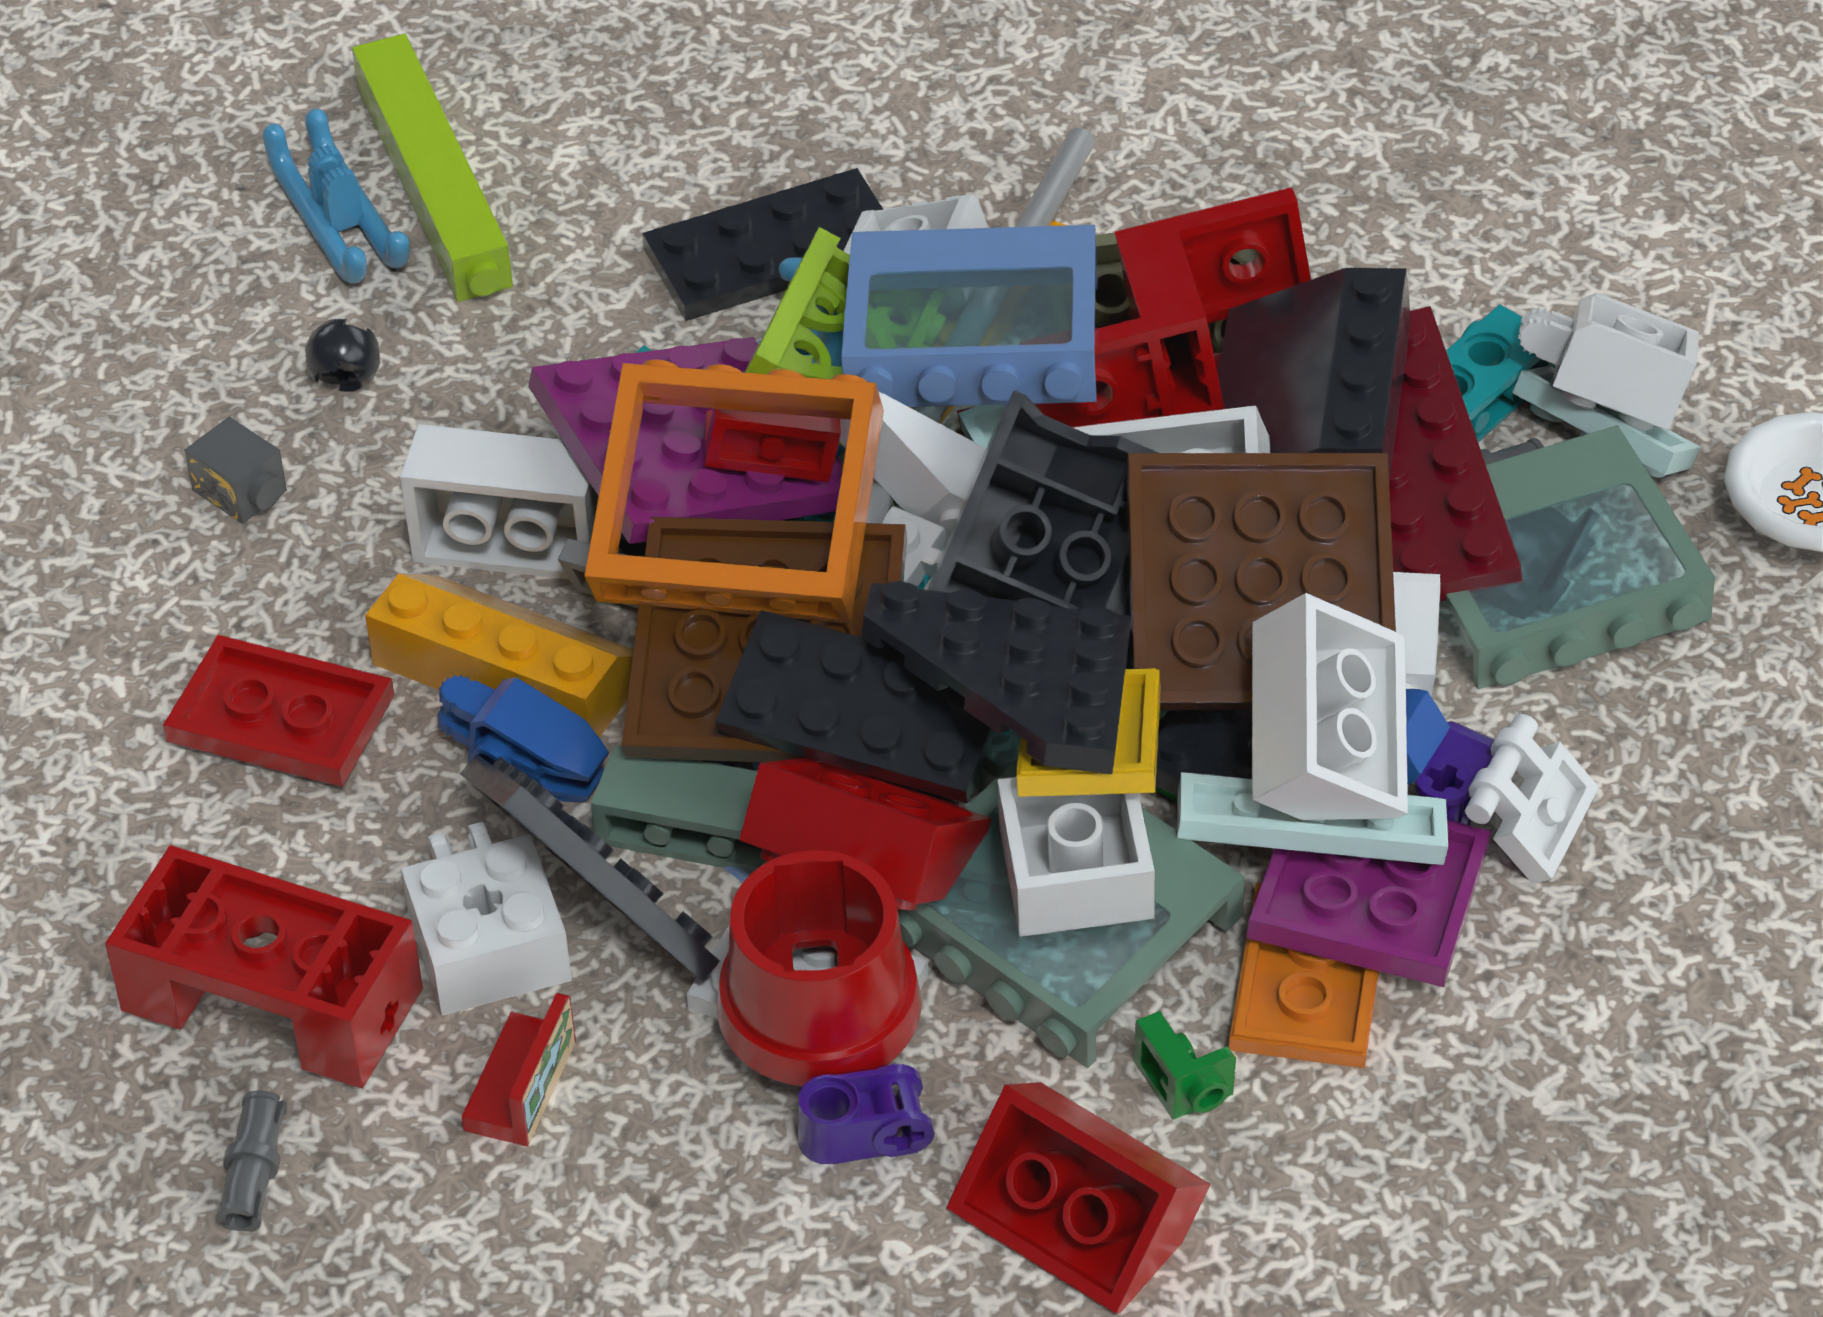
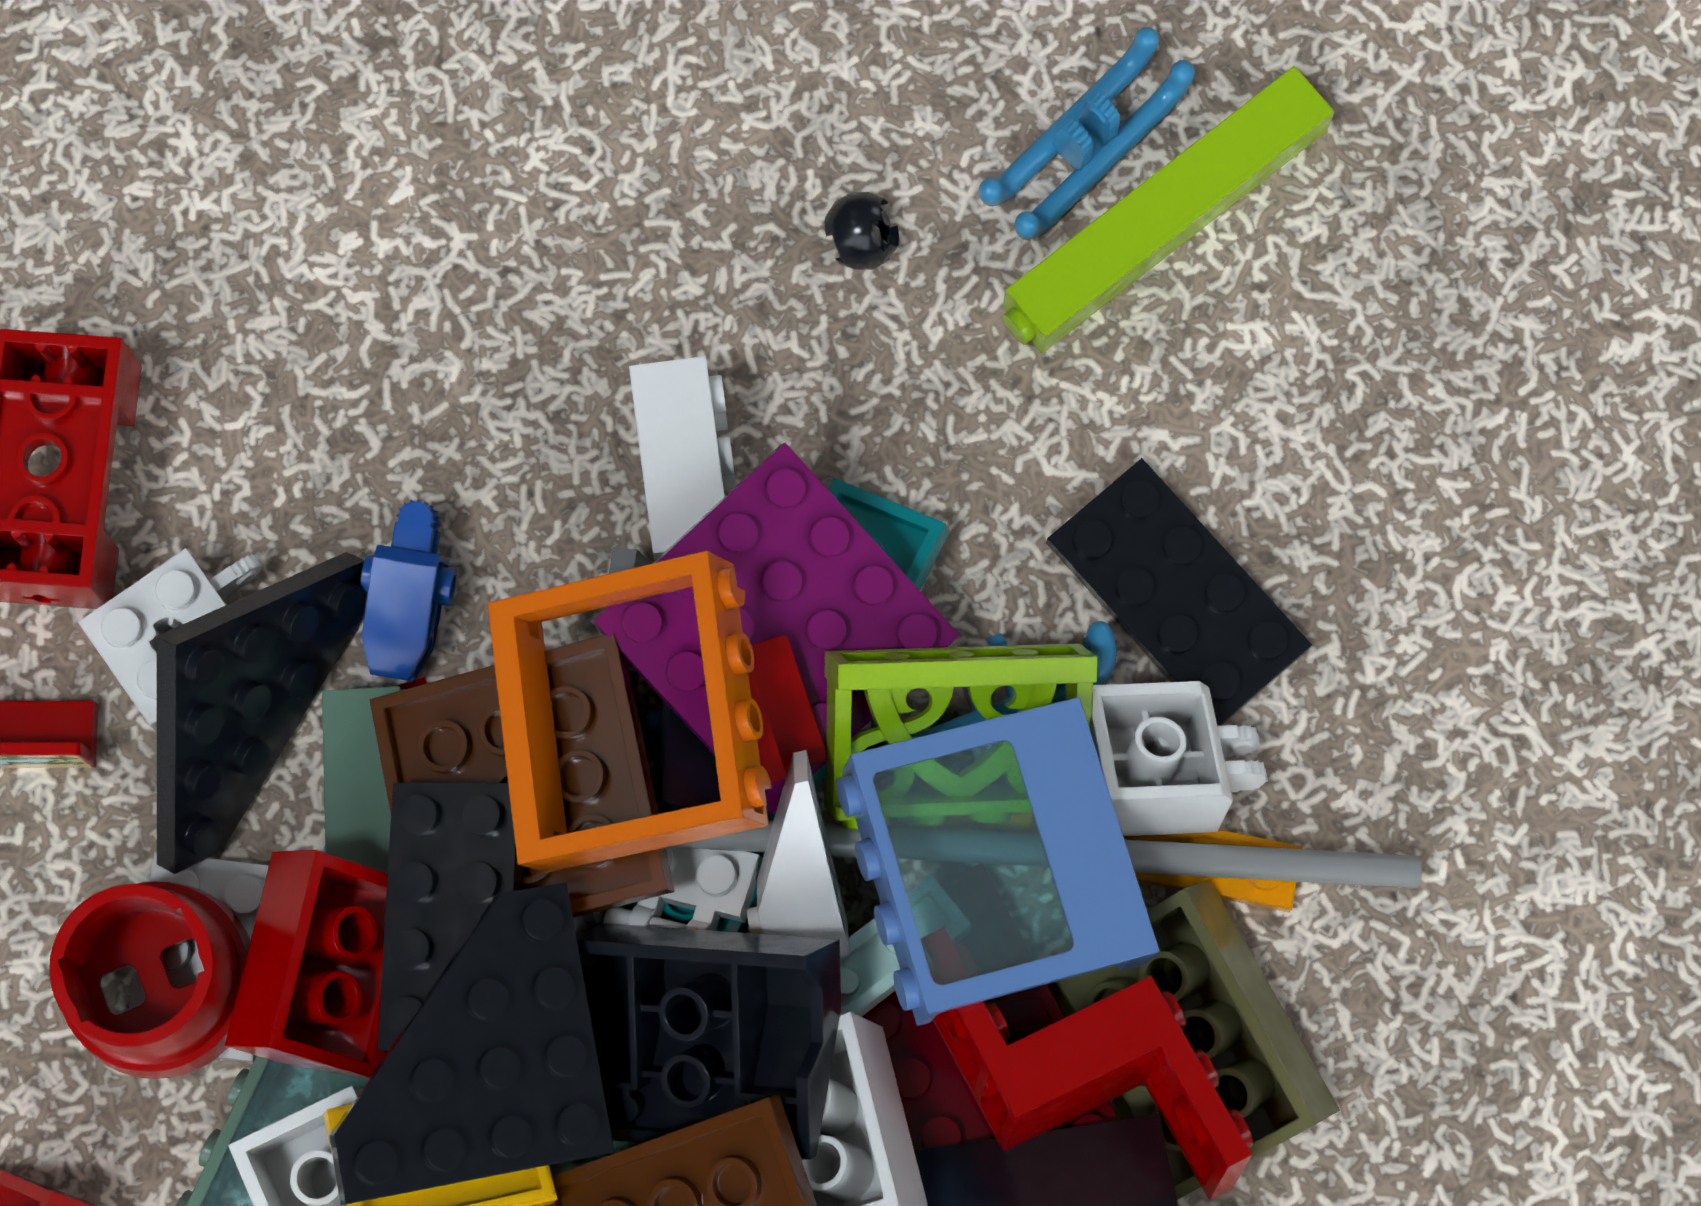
camera: 70 degrees right, 30 degrees up
(236, 470) = (678, 193): dark grey brick -> none
(279, 710) = (392, 354): red plate -> none
(445, 629) = (525, 518): light orange slope -> none
(859, 1115) = (53, 1066): dark purple piece -> none

